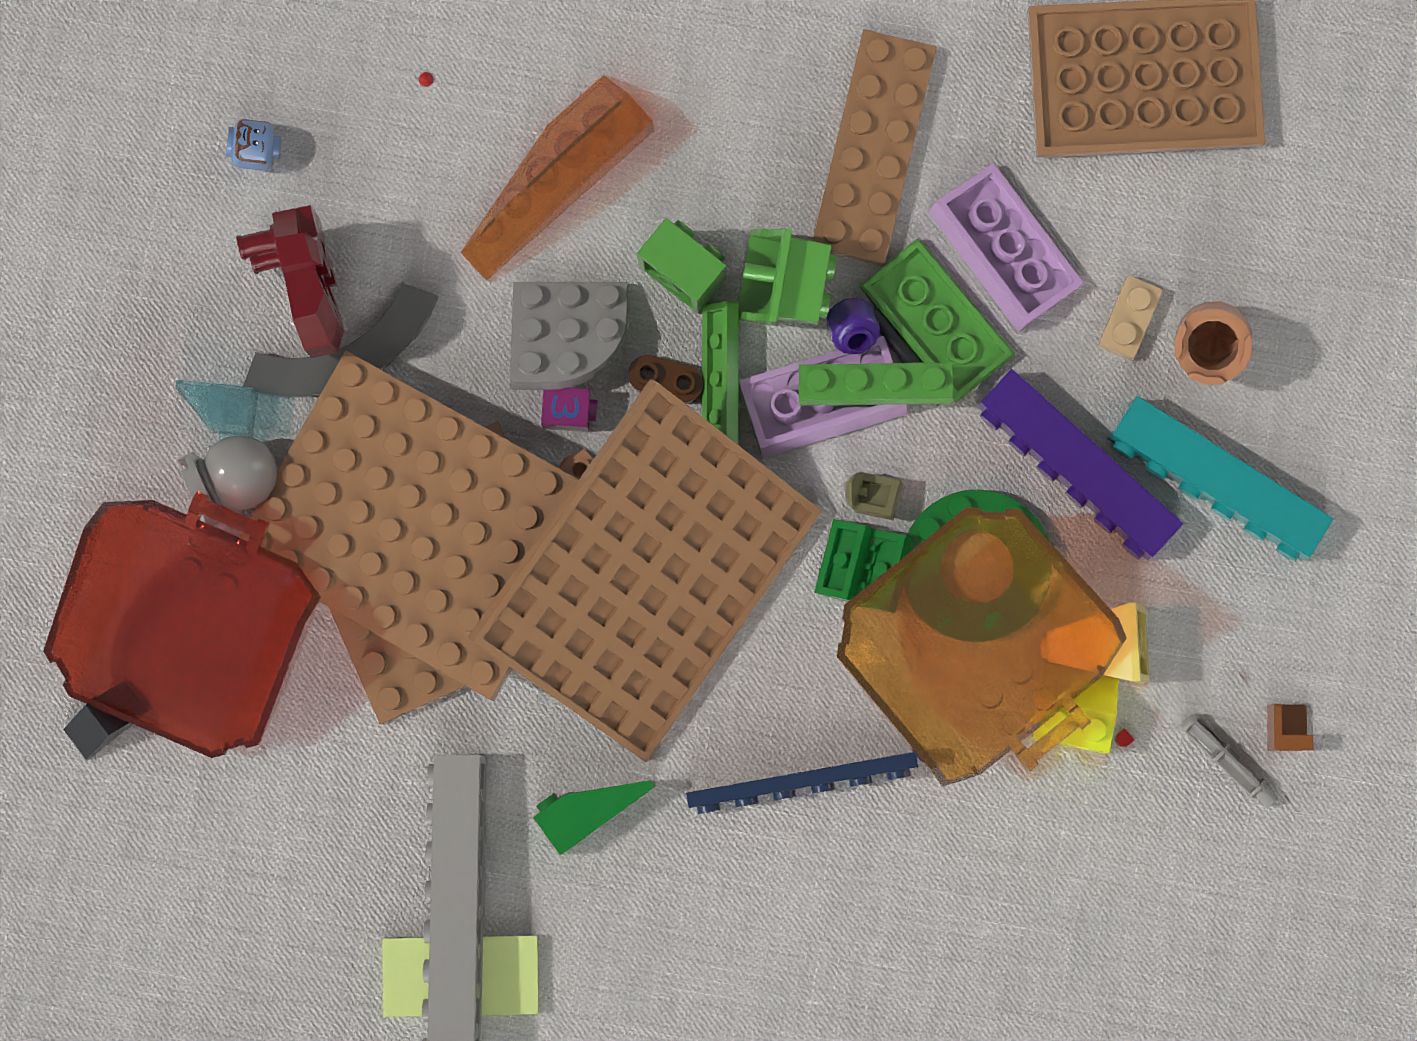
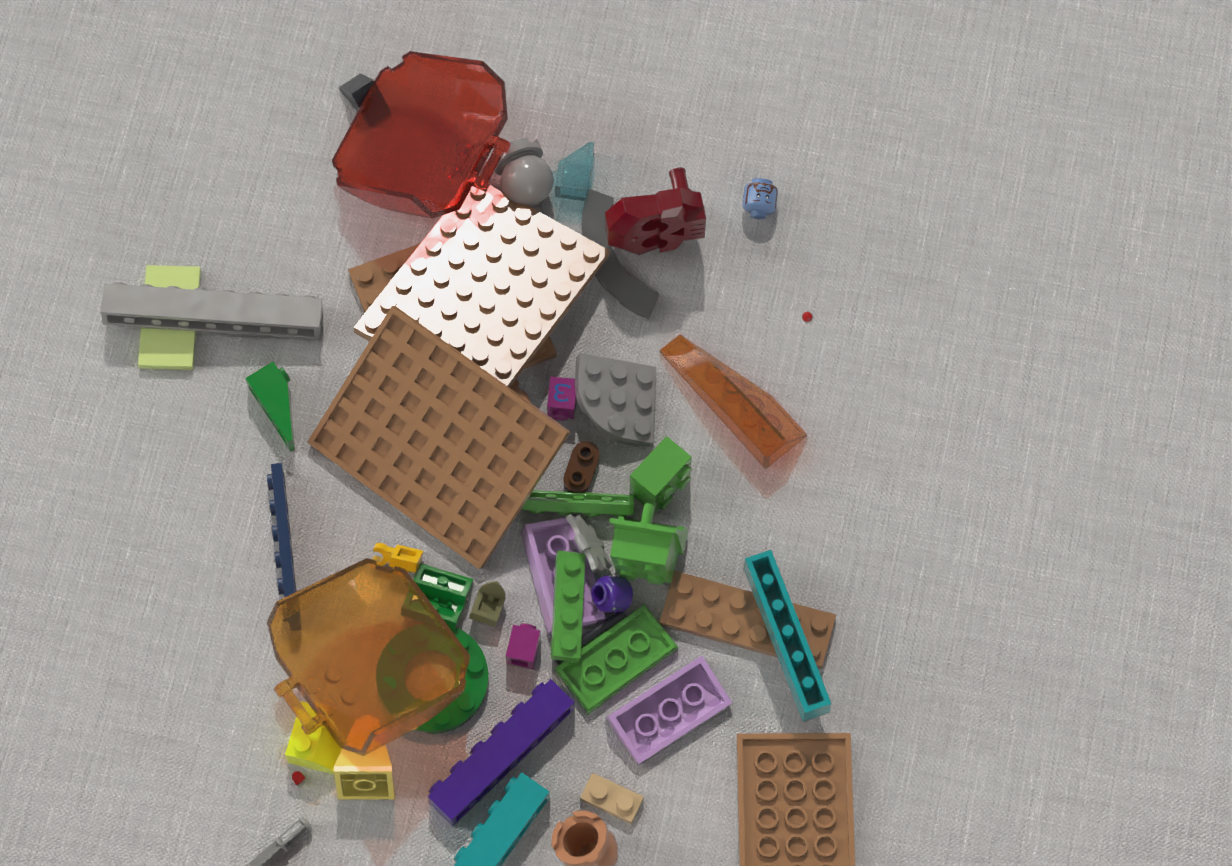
camera: 90 degrees right, 15 degrees down
(781, 360) = (589, 543): none -> light grey piece
(810, 617) = (399, 556): none -> yellow plate
(909, 85) = (787, 635): none -> teal brick
(929, 443) = (523, 646): none -> magenta brick

